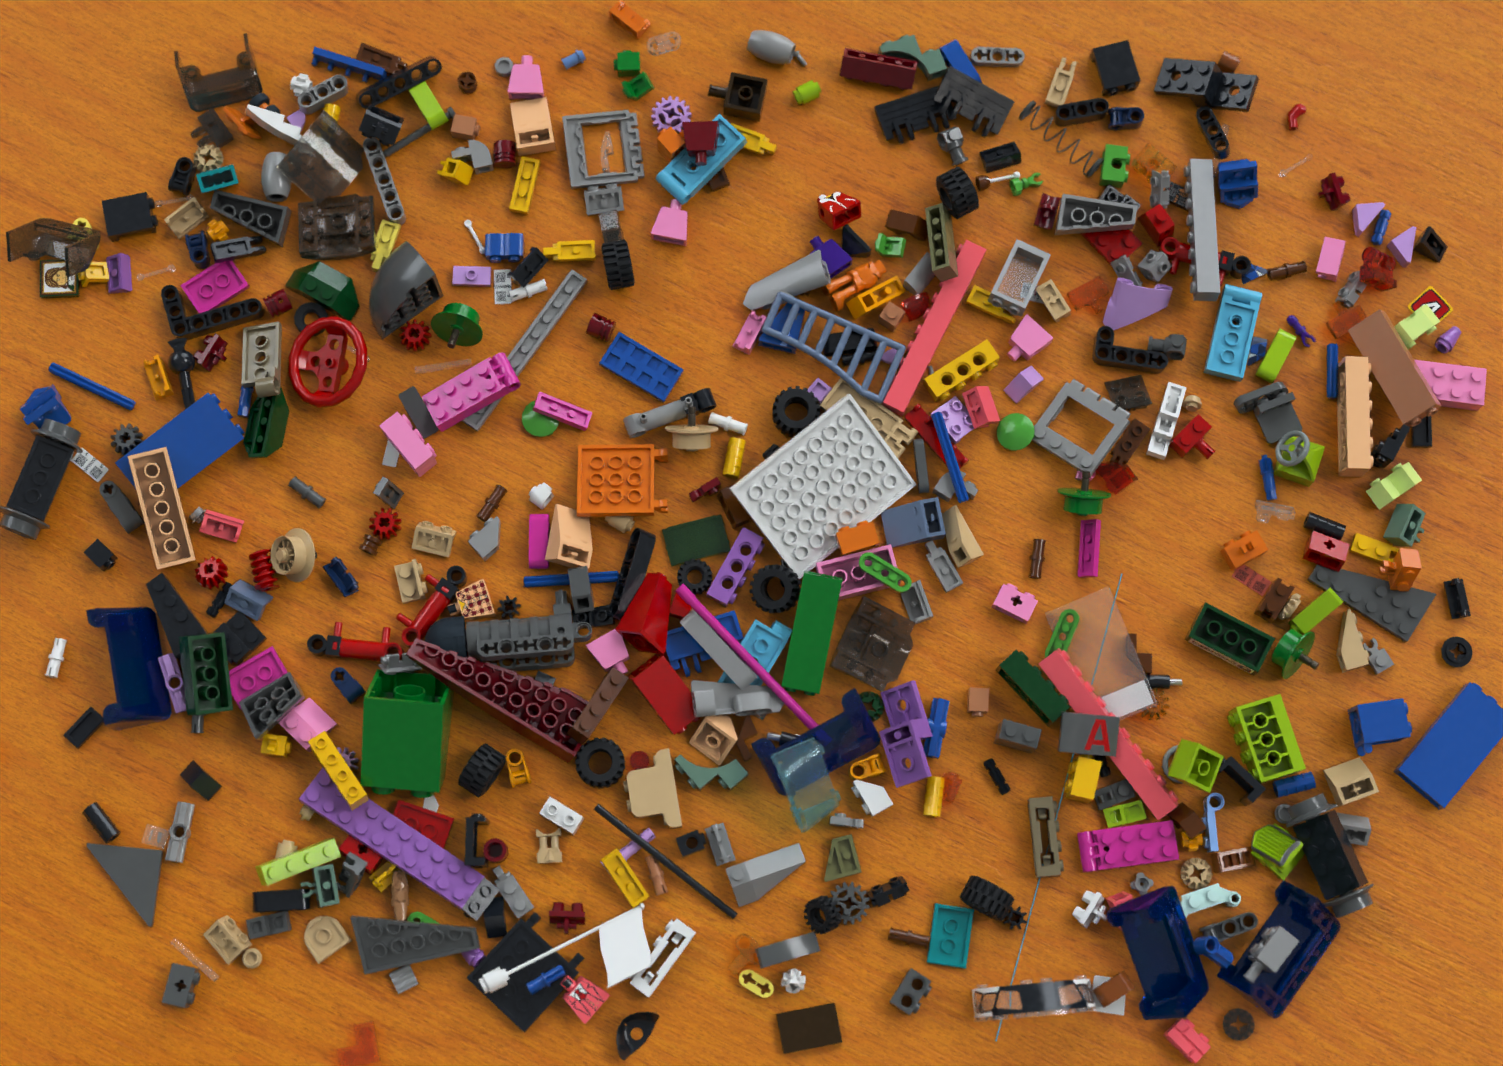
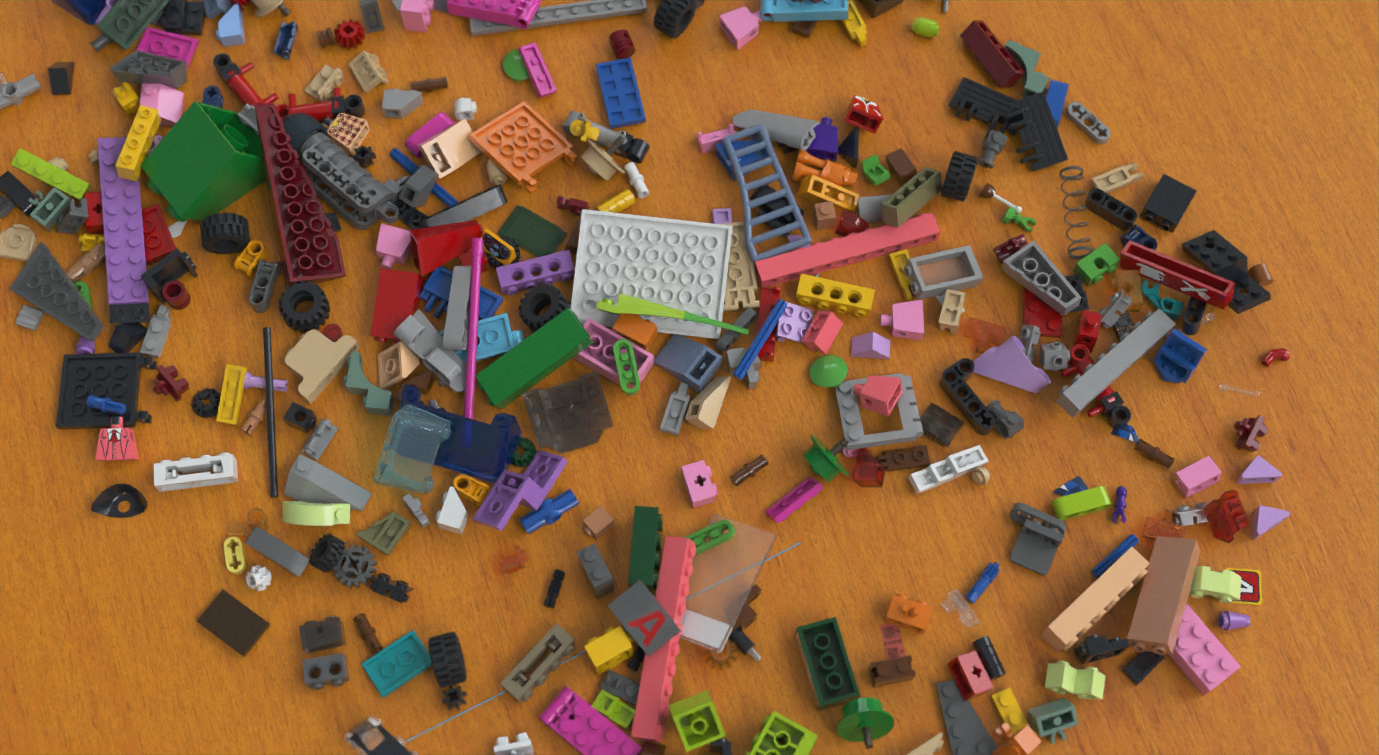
camera: 50 degrees right, 10 degrees down
(287, 610) = (231, 27): none -> light blue slope
(542, 766) = (267, 274): none -> dark grey piece
(552, 854) = (207, 334): tan piece -> none
(561, 815) = (241, 315): white brick -> none
(597, 706) = (342, 266): reddish brown brick -> none
(605, 911) = (208, 410): none -> black gear
(621, 944) = (175, 438): white flag -> none
(660, 424) = (583, 130): none -> yellow hips
(692, 577) = (497, 247): none -> slope
(782, 899) = (315, 514): none -> yellowish green arch
(794, 396) = (690, 200): black tyre -> none
(840, 525) = (634, 305): none -> lime plate
(880, 970) = (322, 634): none -> clear smoke brick
(917, 603) = (631, 416): light grey hinge -> none
(933, 796) = (494, 556): yellow axle -> none
(1000, 157) = (1019, 188): black slope -> none
(1072, 414) = (879, 393): none -> coral torso
(1171, 151) = (1153, 297): none -> teal piece
(1180, 122) = (1177, 275): none -> red brick
(1192, 437) = (955, 497): red brick -> none
(1232, 342) = (1055, 460): medium azure hinge -> none
(1290, 606) = (898, 687): tan gear -> none
(1297, 458) = (1020, 588): lime piece -> none
(1315, 612) = (914, 710): lime slope -> none
(1381, 227) = (1262, 492): blue axle -> none
(1430, 245) = (1290, 540): black slope -> none

